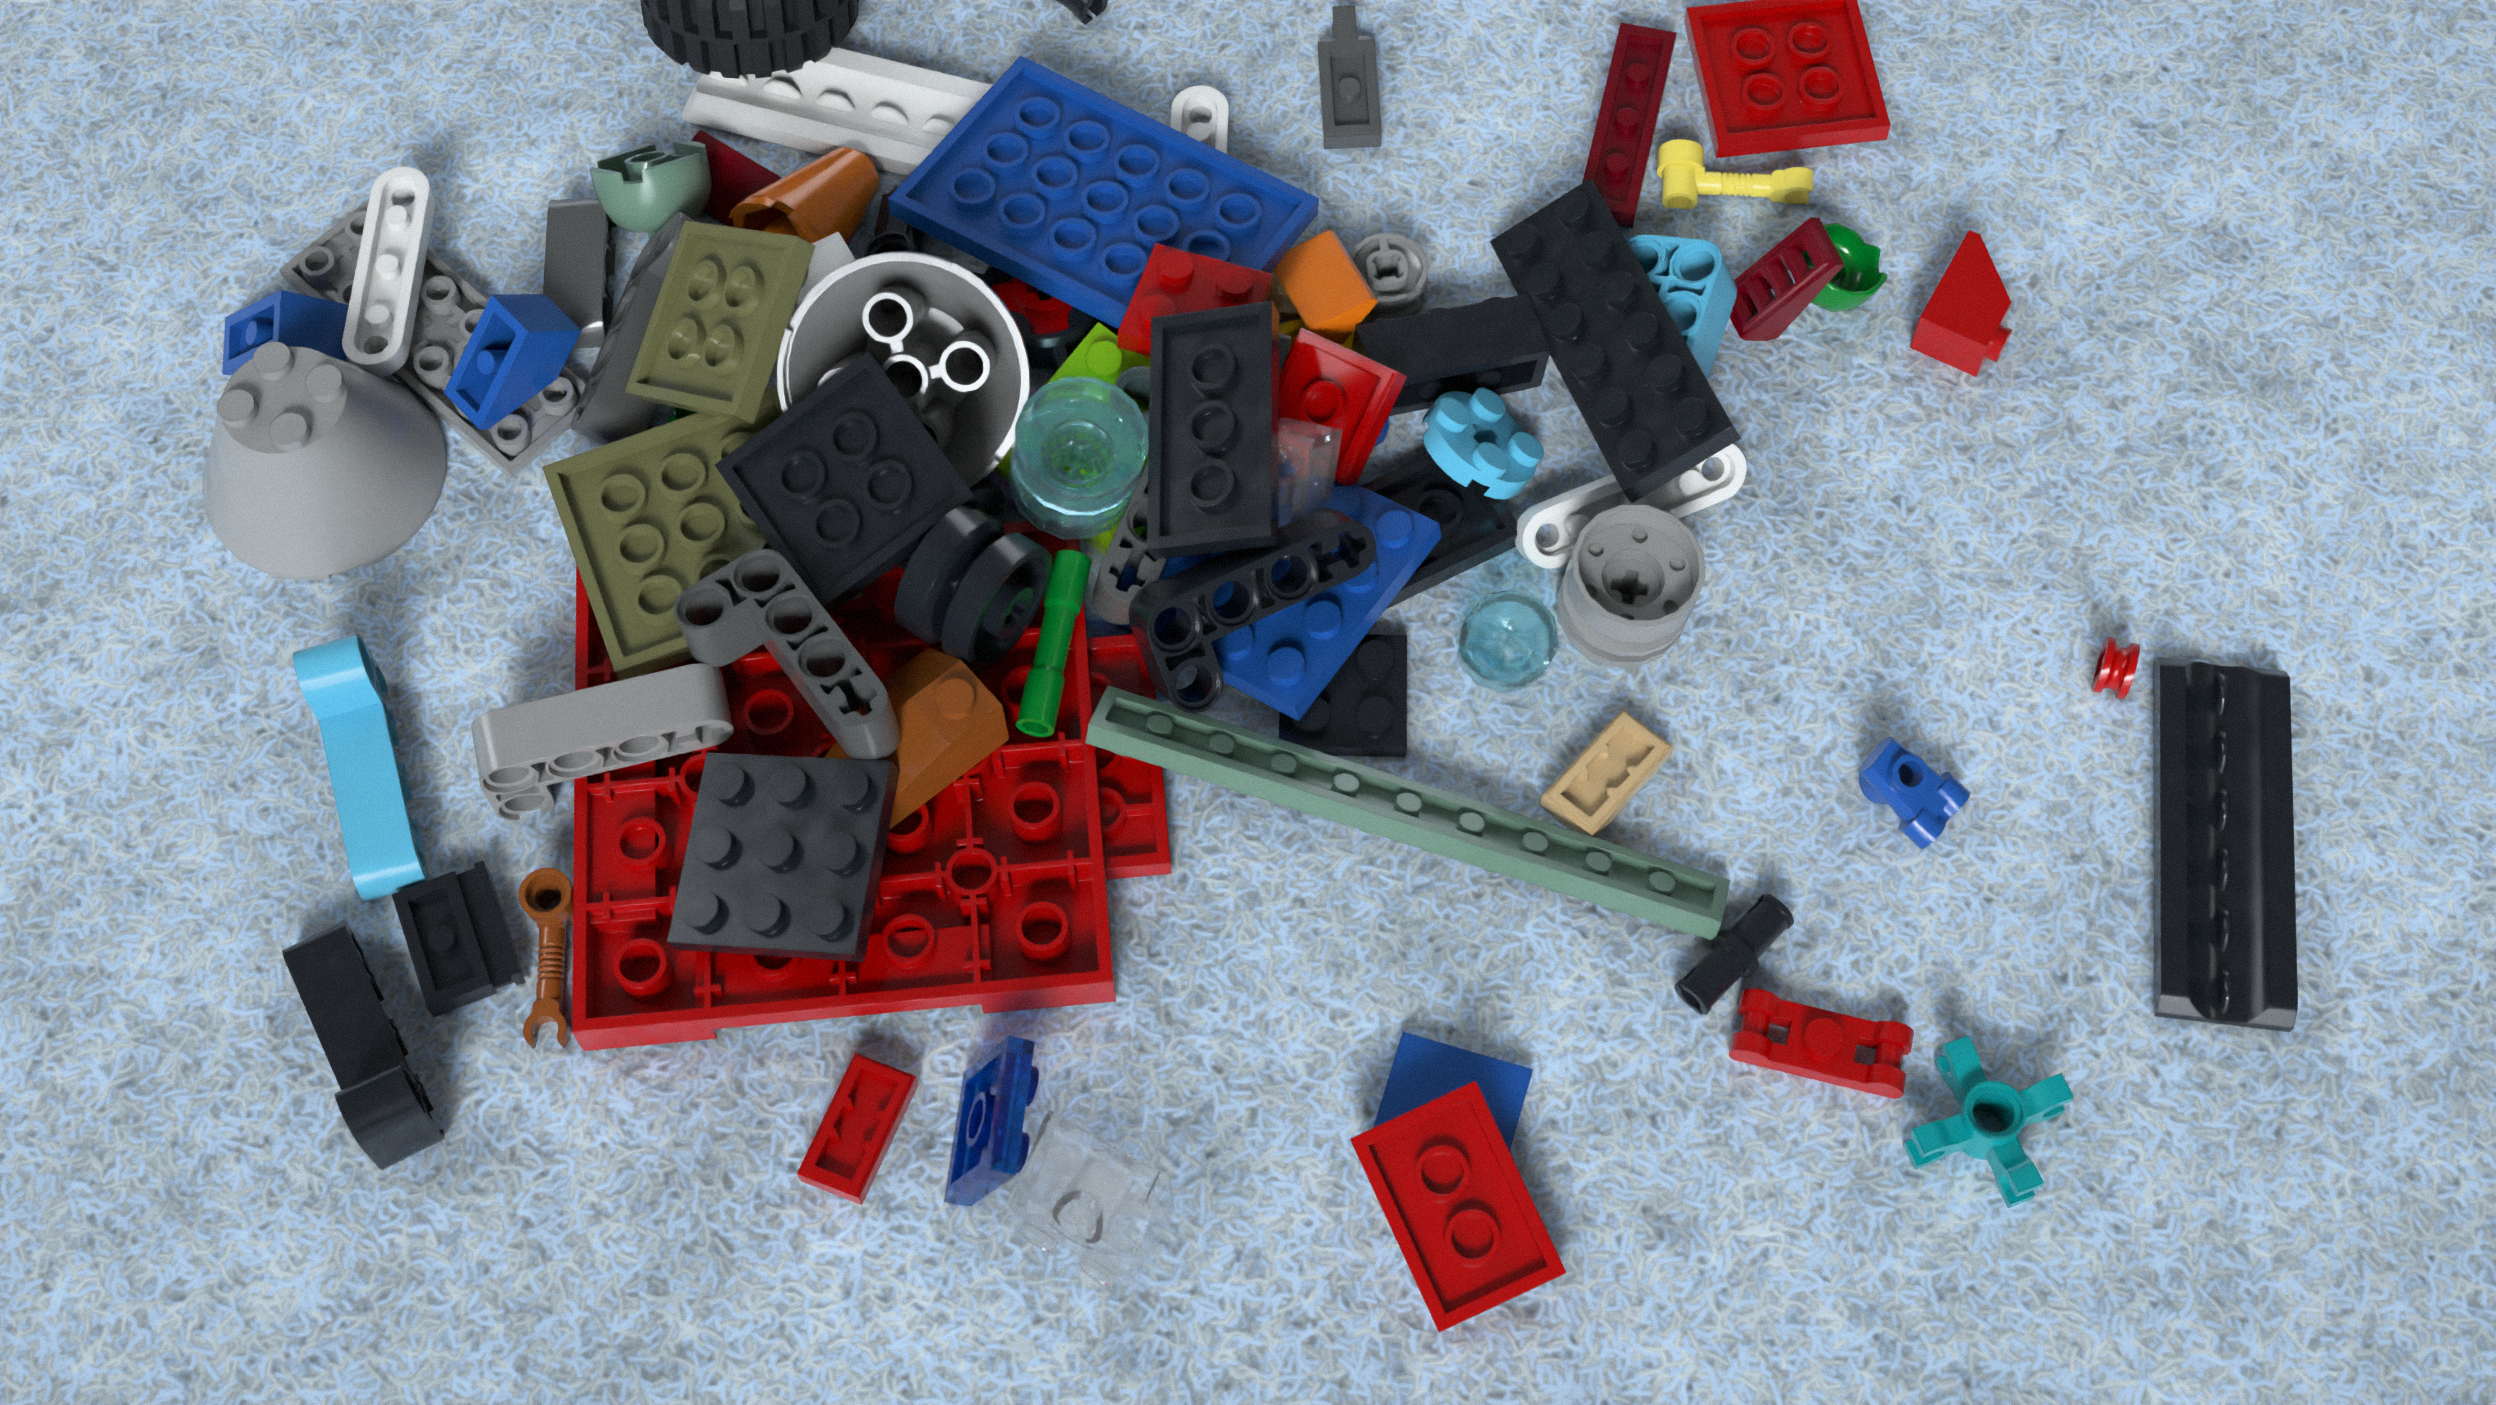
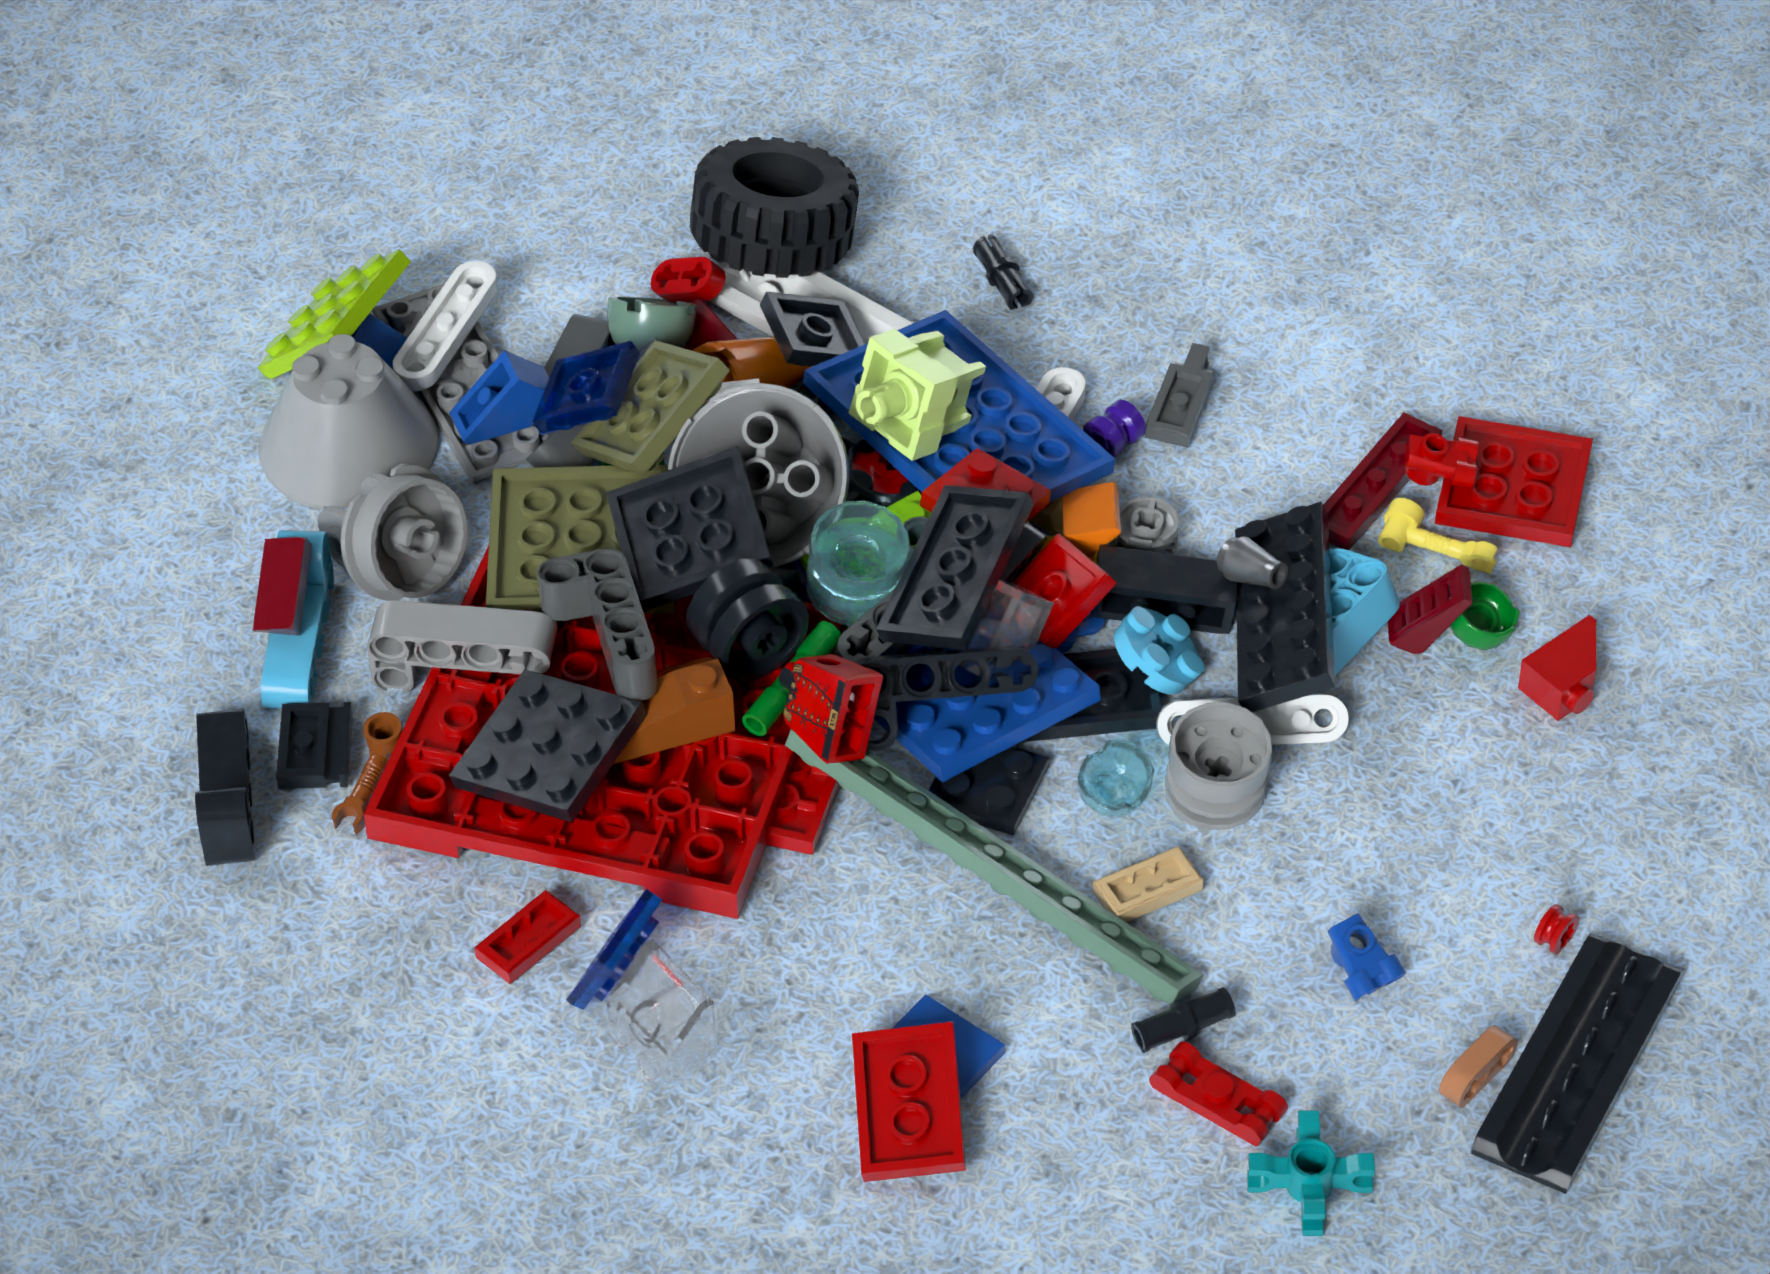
camera: 20 degrees right, 15 degrees down
(235, 300) = (335, 310): none -> lime plate
(328, 733) = (282, 585): none -> dark red slope
(451, 597) = (399, 534): none -> light grey piece
(621, 314) = (586, 387): none -> clear blue plate
(673, 97) = (678, 278): none -> red beam
(867, 134) = (810, 327): none -> black plate
(1049, 193) = (913, 391): none -> yellowish green piece
(1132, 676) = (831, 705): none -> red torso
(1284, 151) = (1118, 426): none -> dark purple wheel
(1554, 295) = (1249, 563): none -> flat silver cone
(1703, 73) = (1435, 457): none -> red plate
(2114, 894) = (1478, 1066): none -> nougat beam

